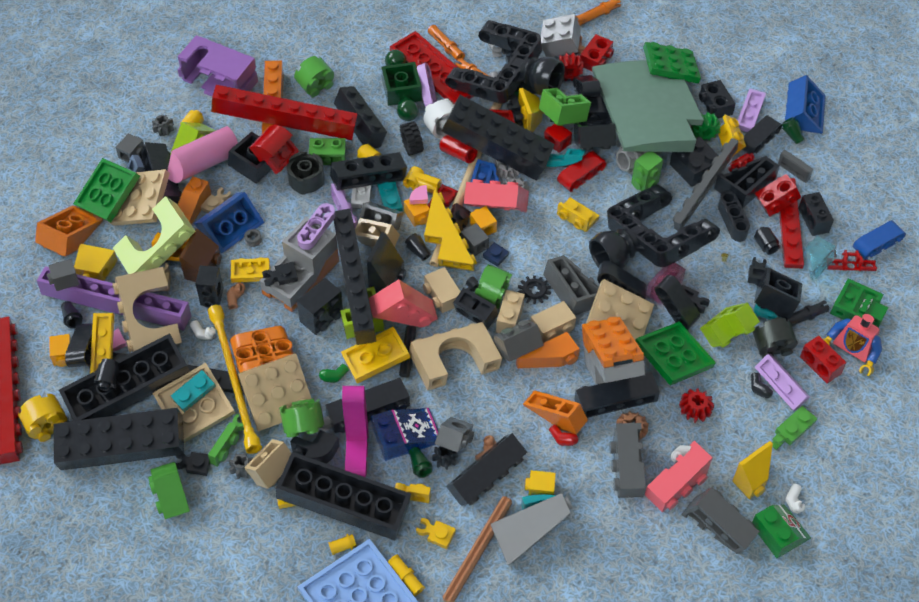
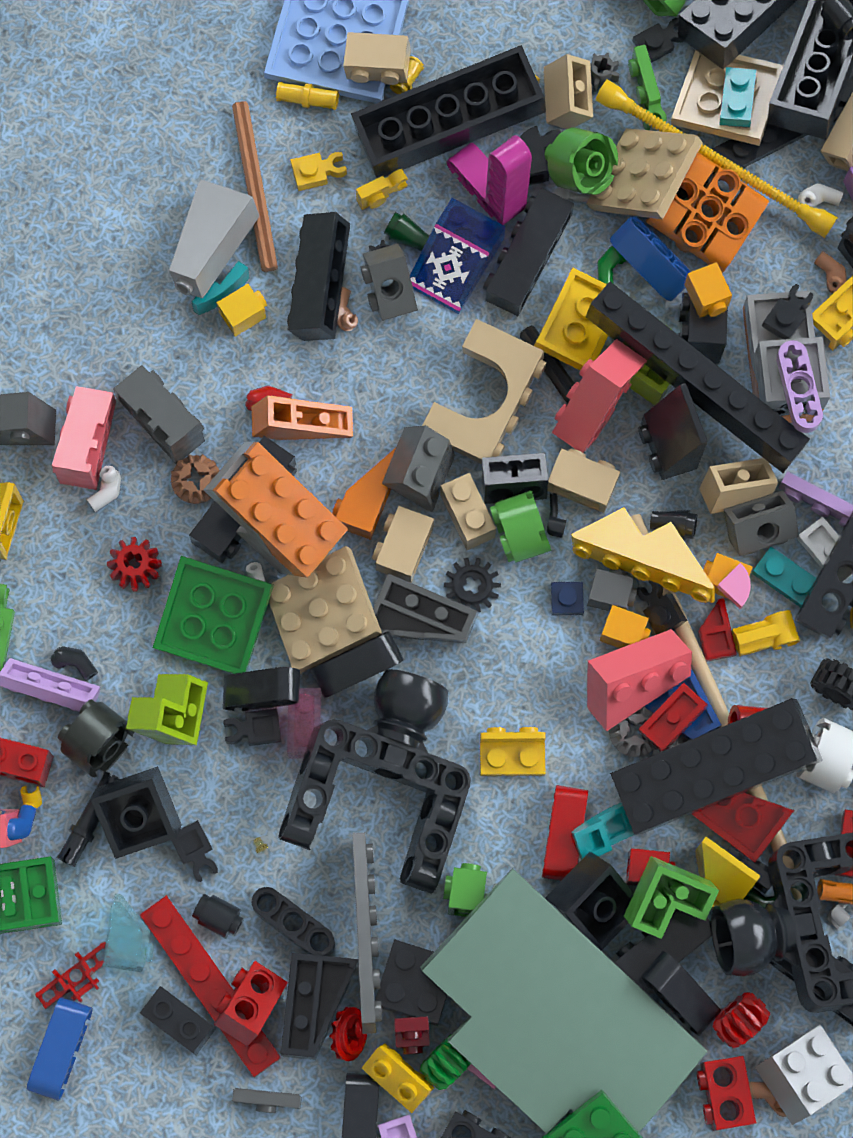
camera: 140 degrees right, 20 degrees up
(311, 297) = (708, 290): none -> light orange brick
(313, 355) = (650, 257): none -> blue beam
(354, 552) = (377, 58): none -> tan brick
(496, 172) = (673, 717): none -> red plate
(714, 139) = (412, 1034): none -> dark red slope

